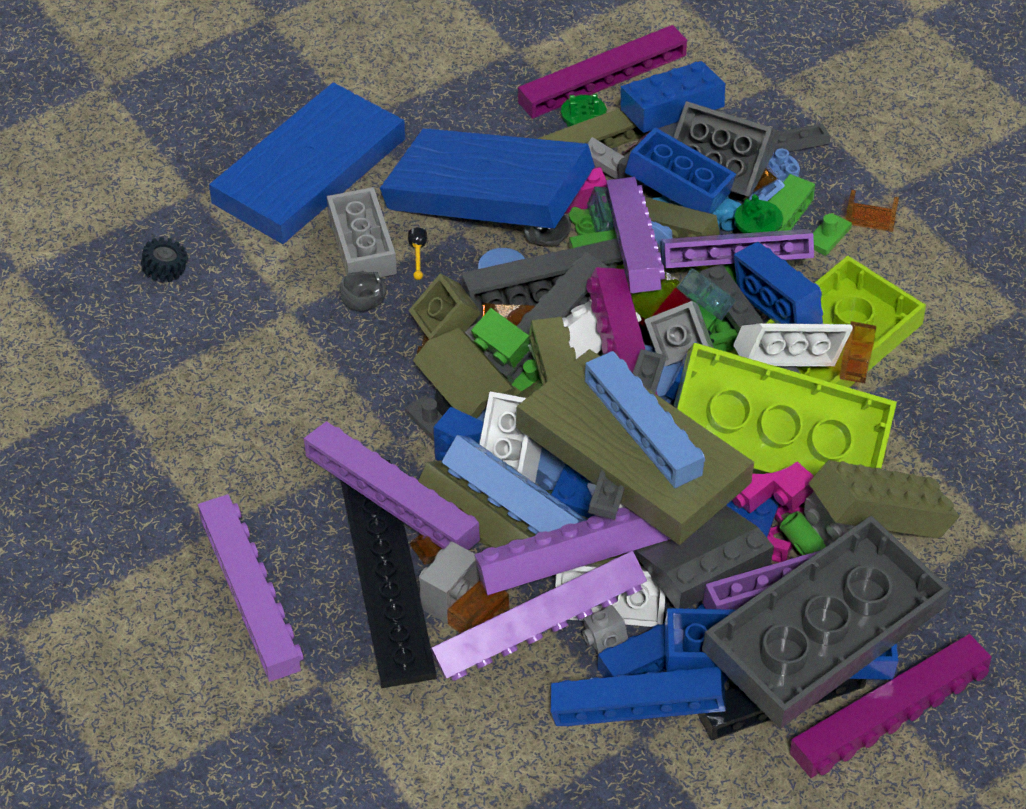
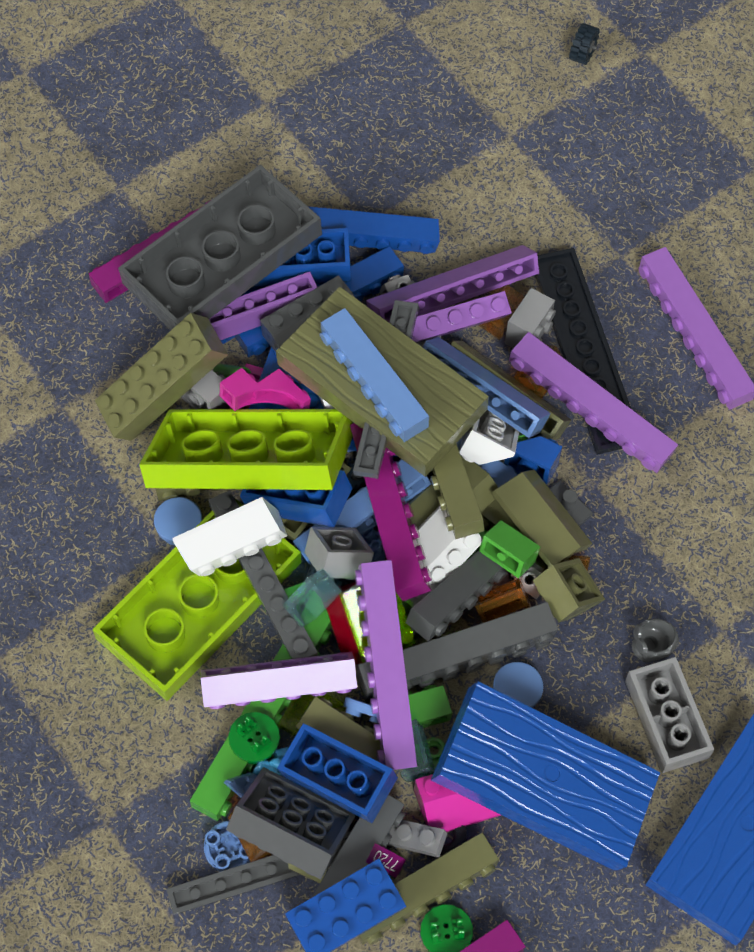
camera: 175 degrees right, 15 degrees up
(417, 239) = (608, 721): hinge -> none
(777, 287) = (239, 611): blue brick -> none
(830, 233) = (179, 751): bright green tile -> none
(858, 352) = (166, 555): clear orange panel -> none
(871, 216) = (130, 775): clear orange panel -> none

